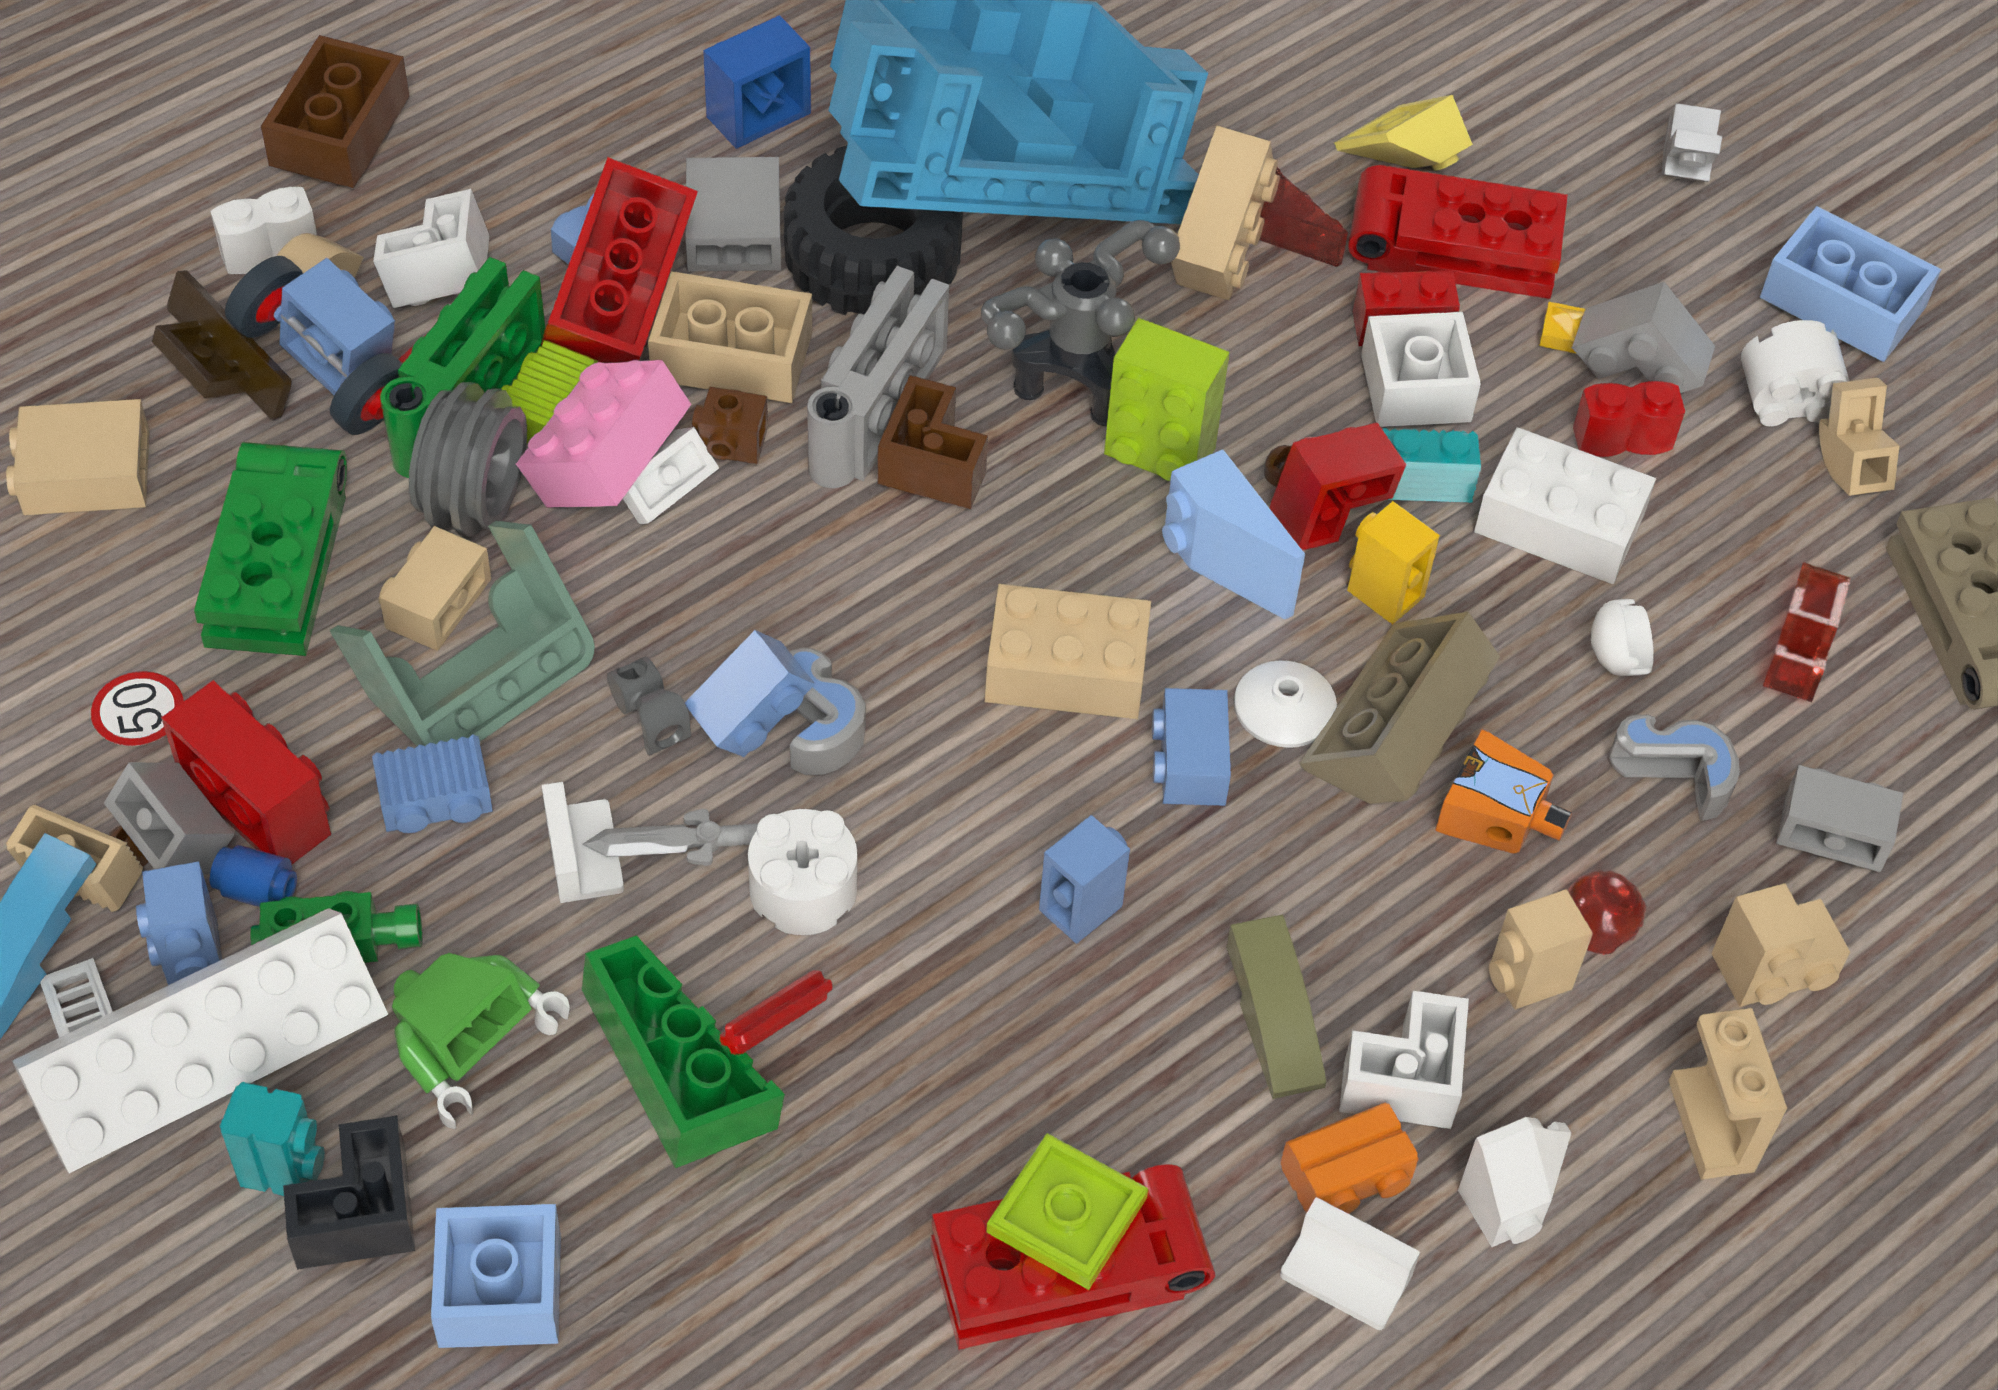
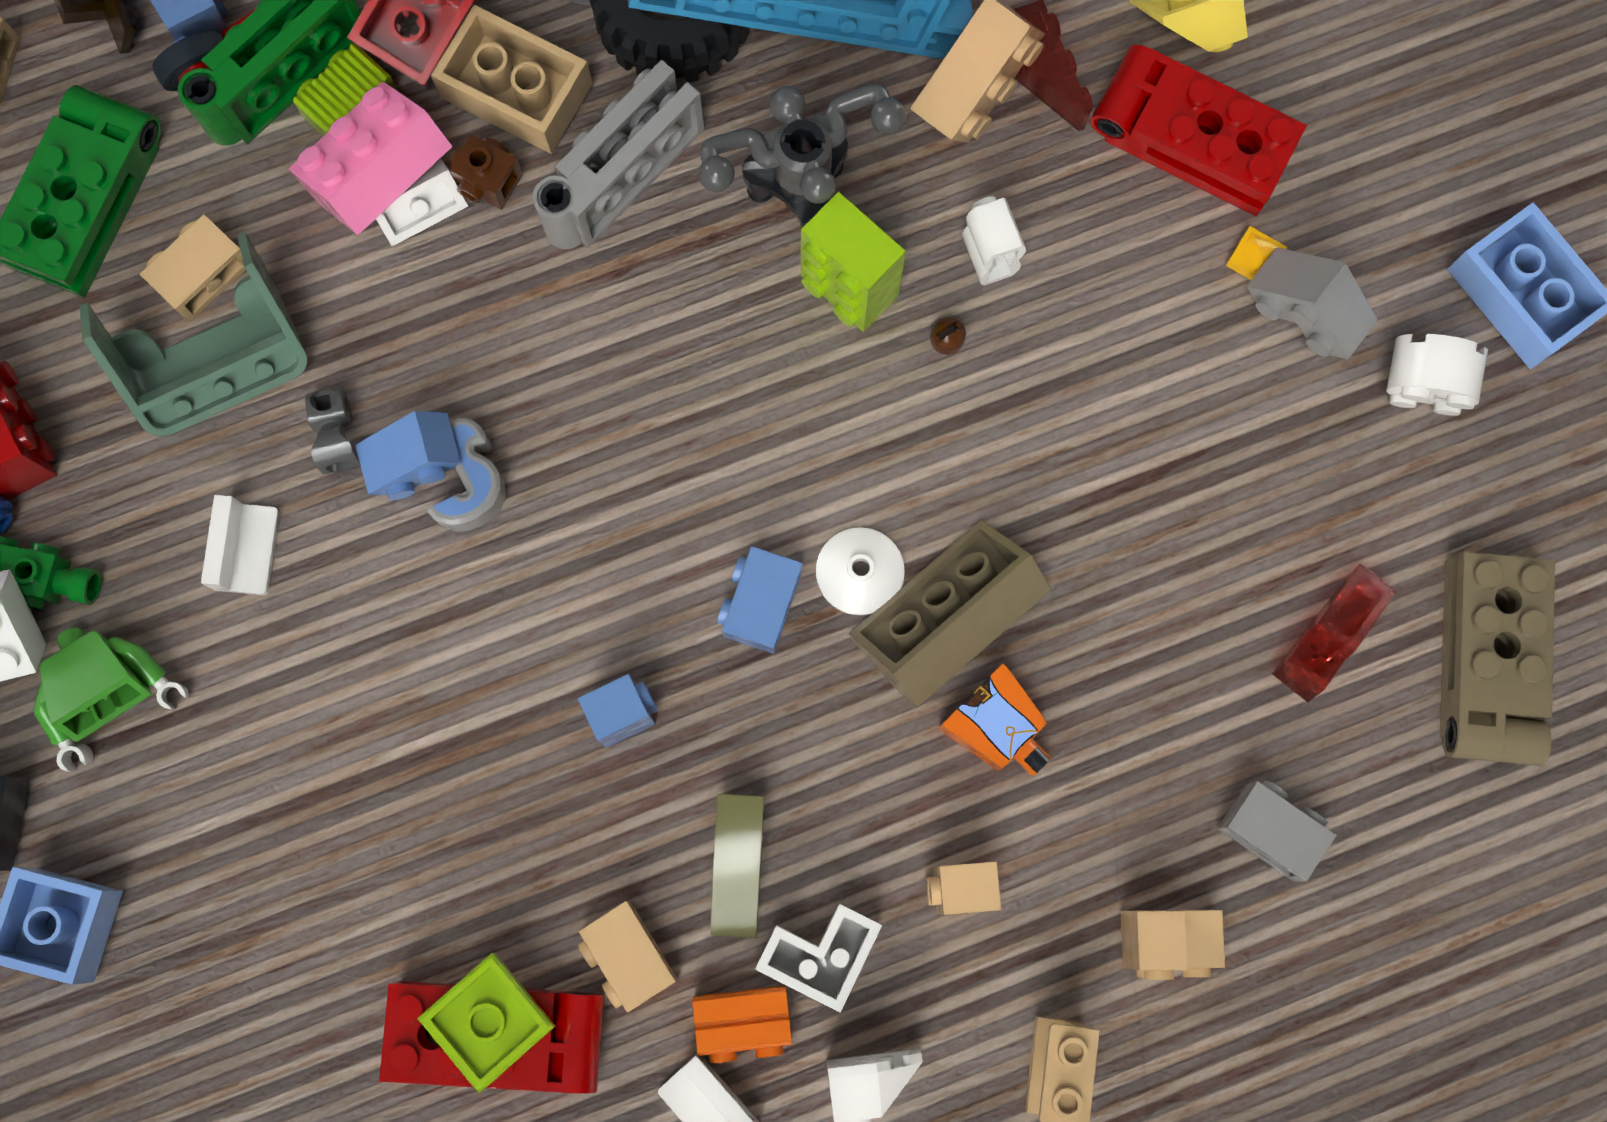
camera: 20 degrees right, 25 degrees up
(432, 784) = (138, 460): medium blue brick -> none
(467, 458) = (240, 159): dark grey wheel -> none
(673, 838) = (317, 562): light grey sword -> none
(673, 1056) = (244, 774): green wedge -> none
(775, 1012) = (332, 761): red axle -> none
(802, 870) = (390, 606): white brick -> none
(926, 451) = (634, 239): reddish brown brick -> none
(1067, 651) = (689, 478): tan brick -> none
(1192, 1129) = (626, 956): none -> tan brick
(1232, 534) = (859, 399): light blue slope -> none
(1300, 361) = (993, 240): none -> white brick
(1332, 476) = (974, 377): red brick -> none
(1392, 561) = (992, 472): yellow brick -> none
(1403, 295) = (1115, 201): red brick -> none
(1420, 369) = (1100, 274): white brick -> none
(1437, 464) = (1067, 376): teal brick -> none
(1564, 505) = (1172, 449): white brick -> none
(1610, 908) = (1042, 851): clear red hair -> none
(1623, 638) = (1167, 600): white hair -> none
(1628, 418) = (1258, 371): red brick -> none
(1679, 751) = (1171, 722): light grey animal -> none
(1691, 142) = (1452, 88): brick -> none
(1852, 438) = (1461, 457): tan brick -> none

